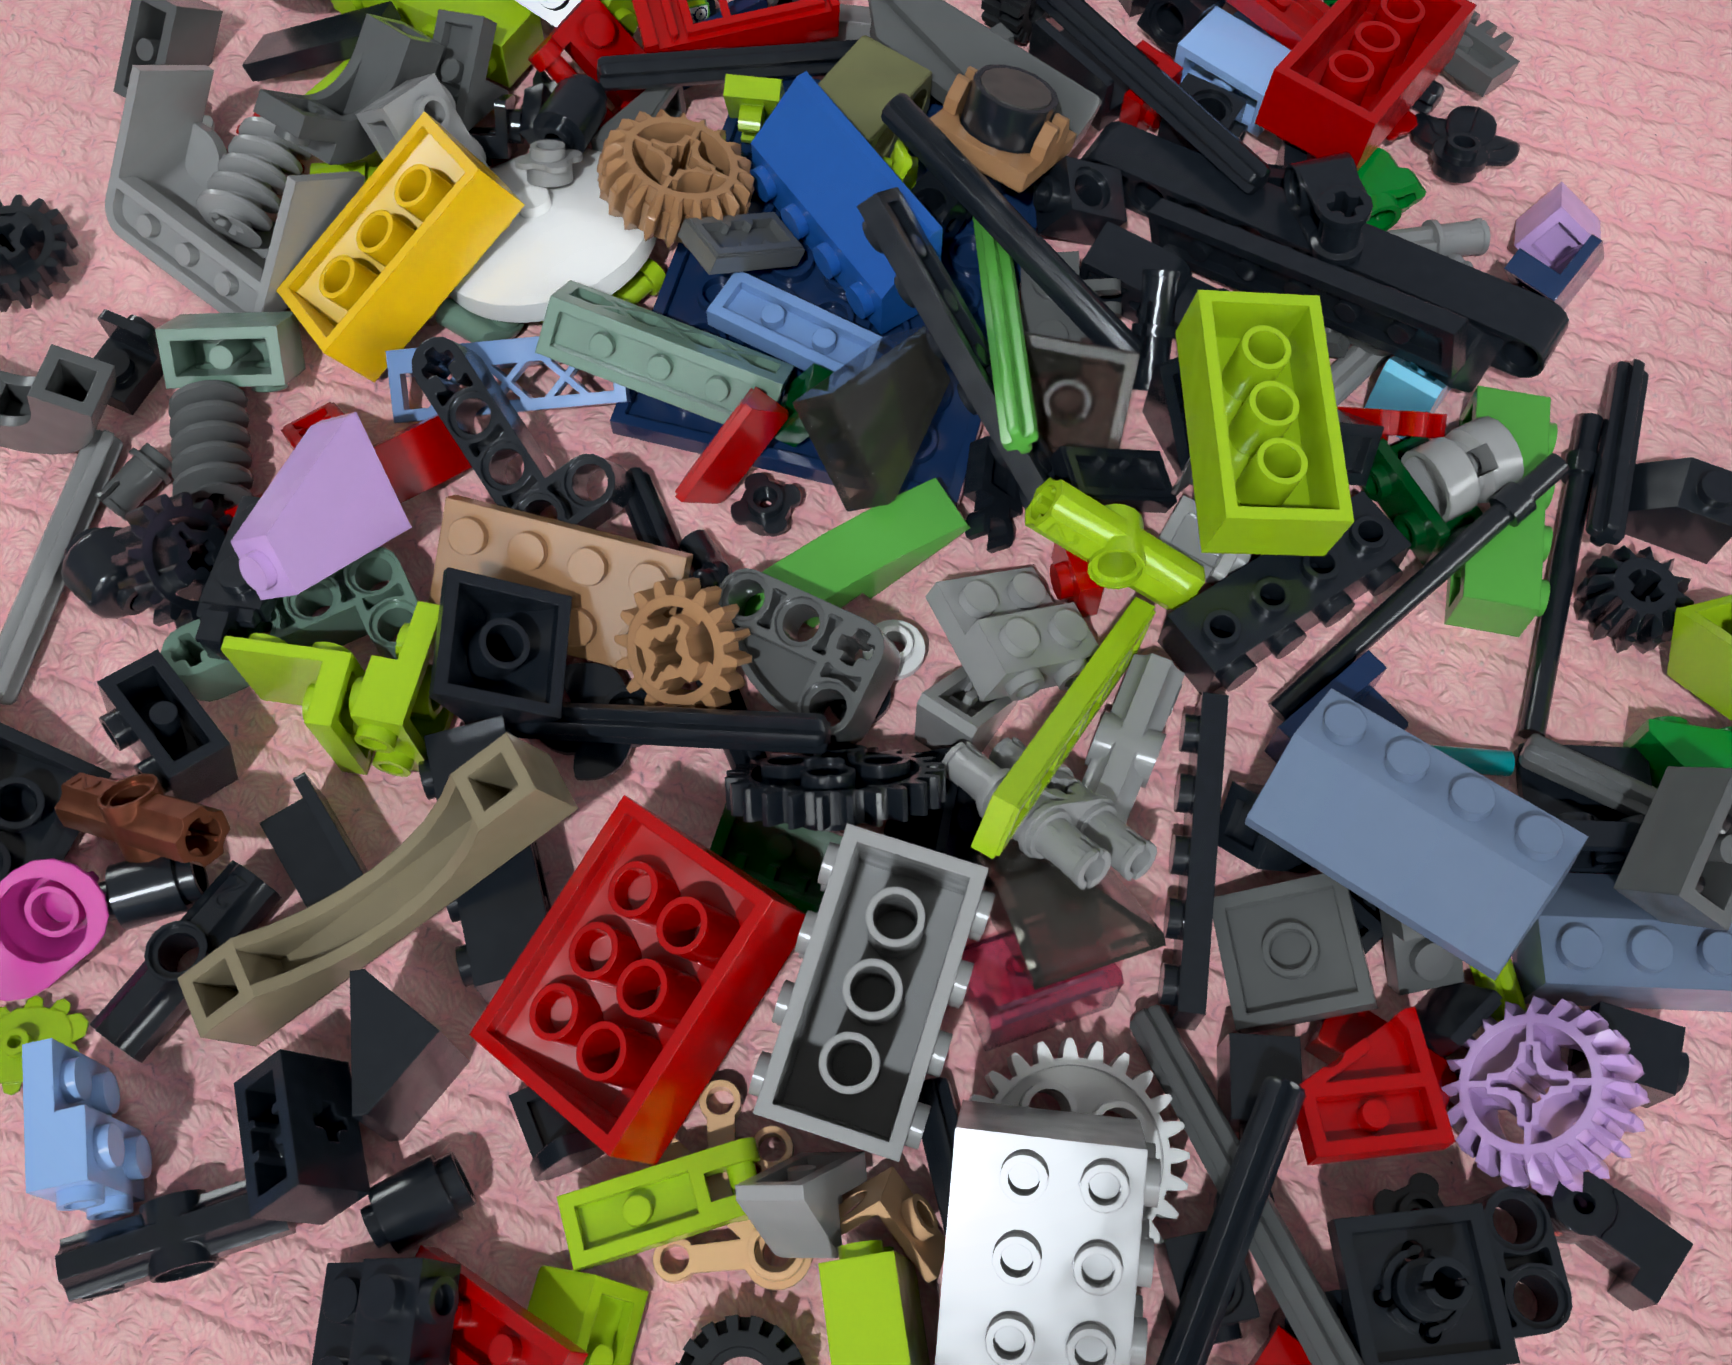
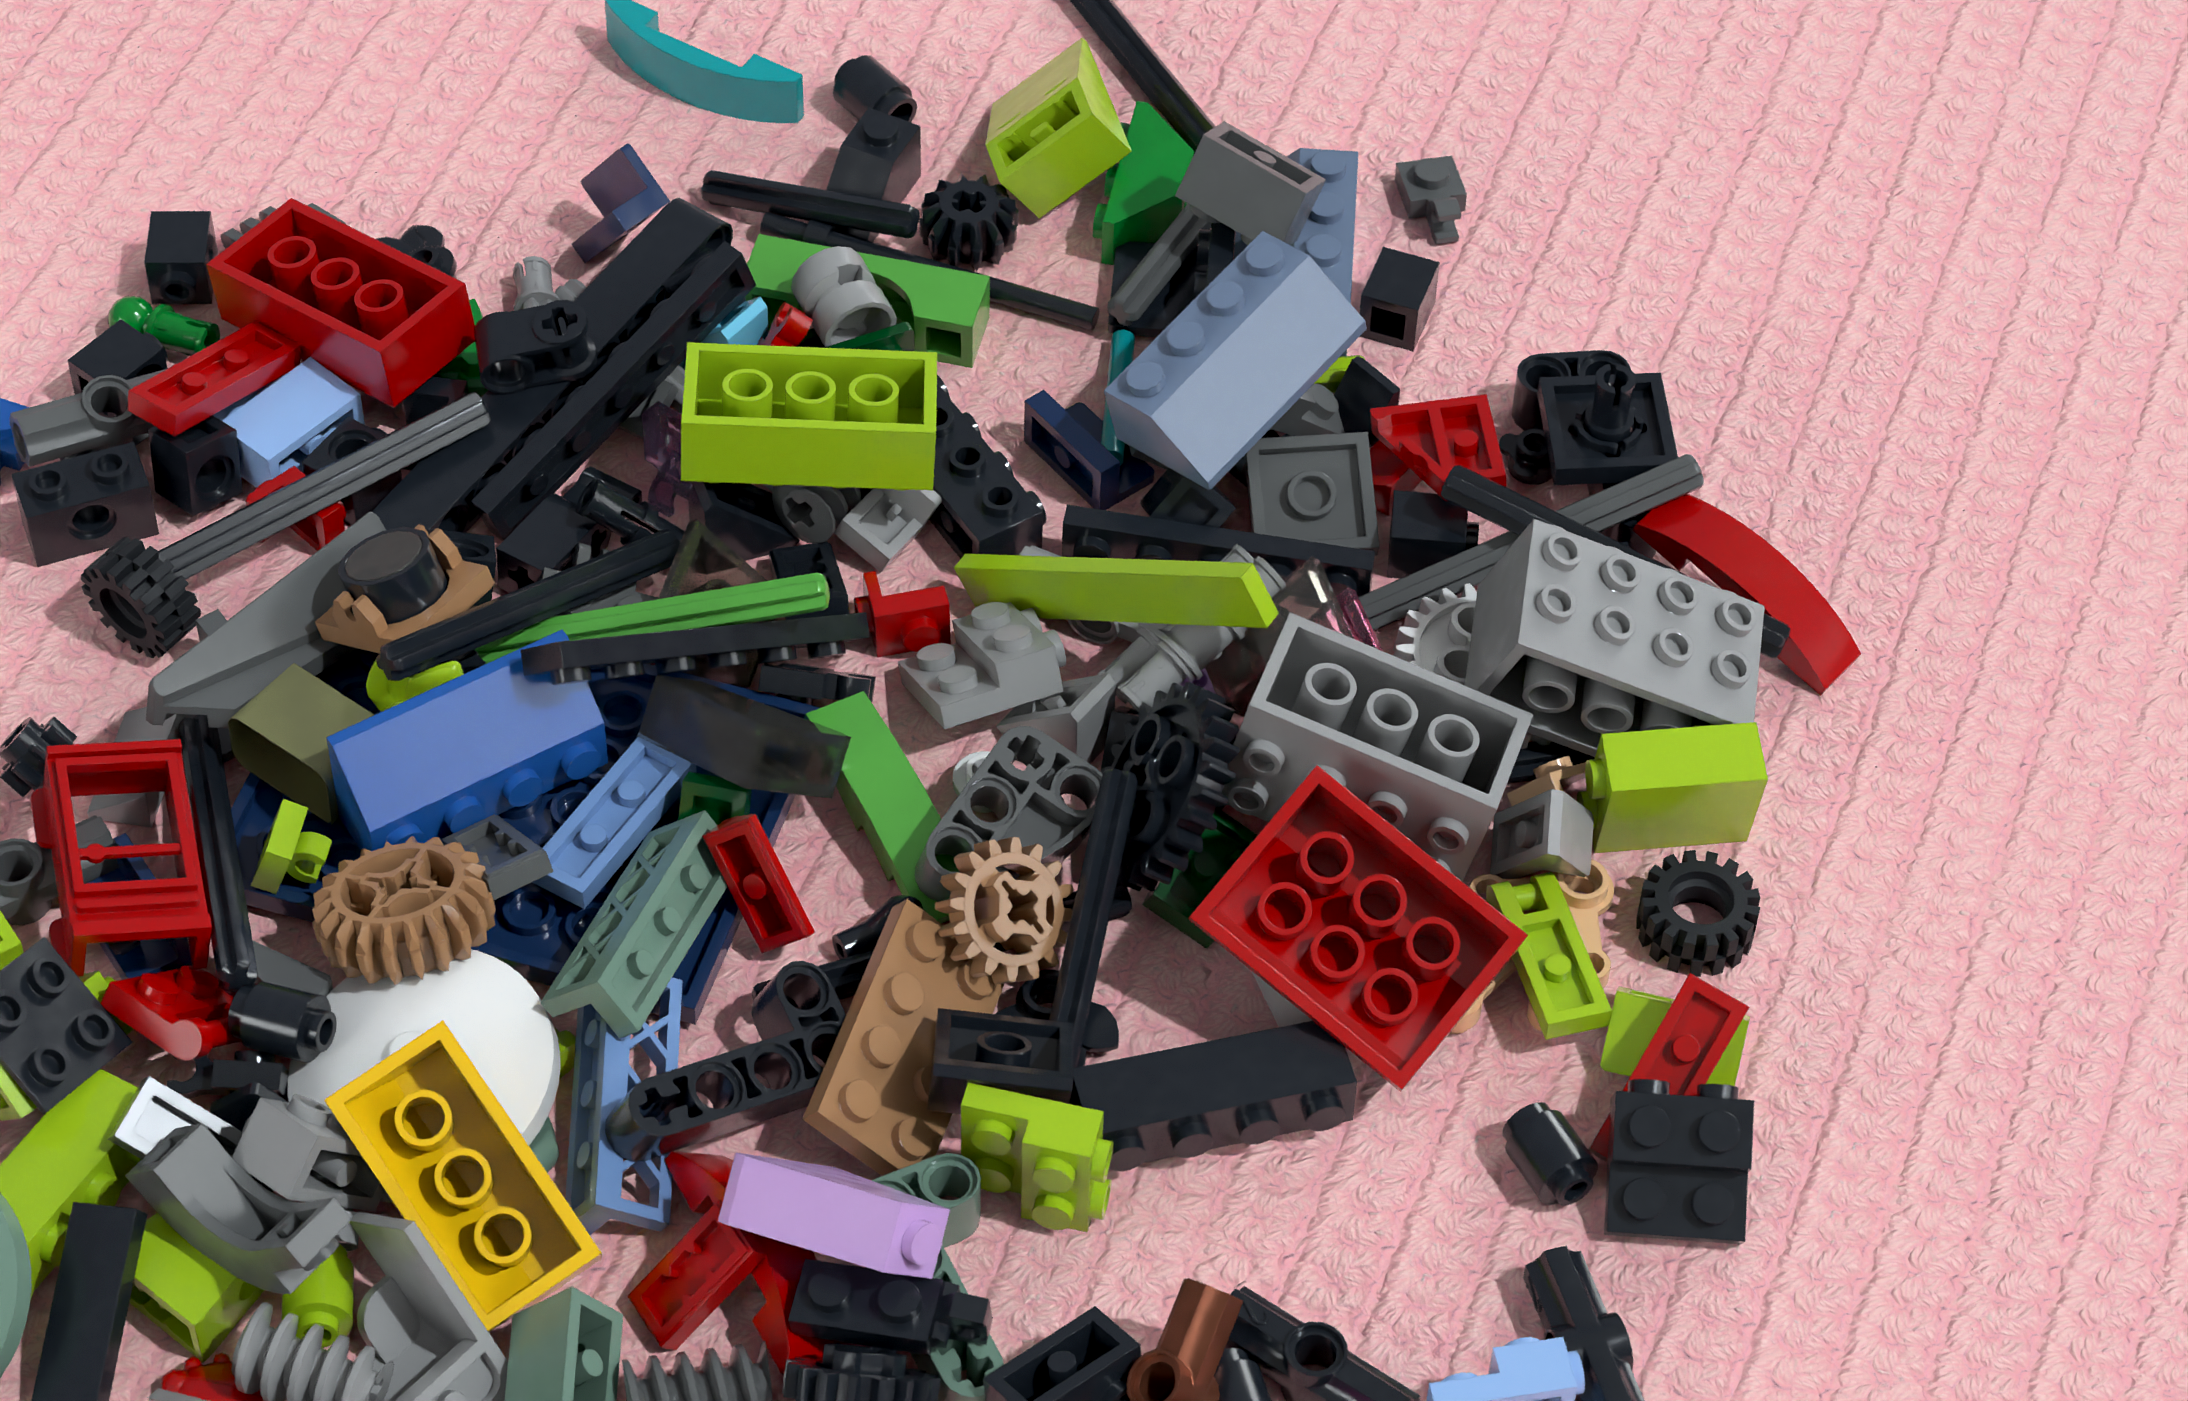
camera: 90 degrees left, 15 degrees down
(300, 1139) = (1500, 1228): black brick -> none
(309, 677) = (1042, 1219): lime bracket -> none
(313, 845) = (1203, 1243): black panel -> none
(396, 1059) = (1423, 1152): black slope -> none
(479, 823) = (1312, 1219): dark tan arch -> none
(549, 163) = (363, 1031): light grey plate -> none
(551, 1138) = (1477, 1057): black tile -> none
(770, 520) = (817, 893): black plate -> none
(1073, 60) = (253, 571): black panel -> none
(1113, 544) = (910, 563): lime piece -> none
(1508, 507) = (893, 273): black bar -> none
(1515, 1065) = (1445, 310): lavender gear -> none
(1556, 228) = (542, 208): lavender panel -> none
(1620, 1237) = (1549, 324): black leg -> none

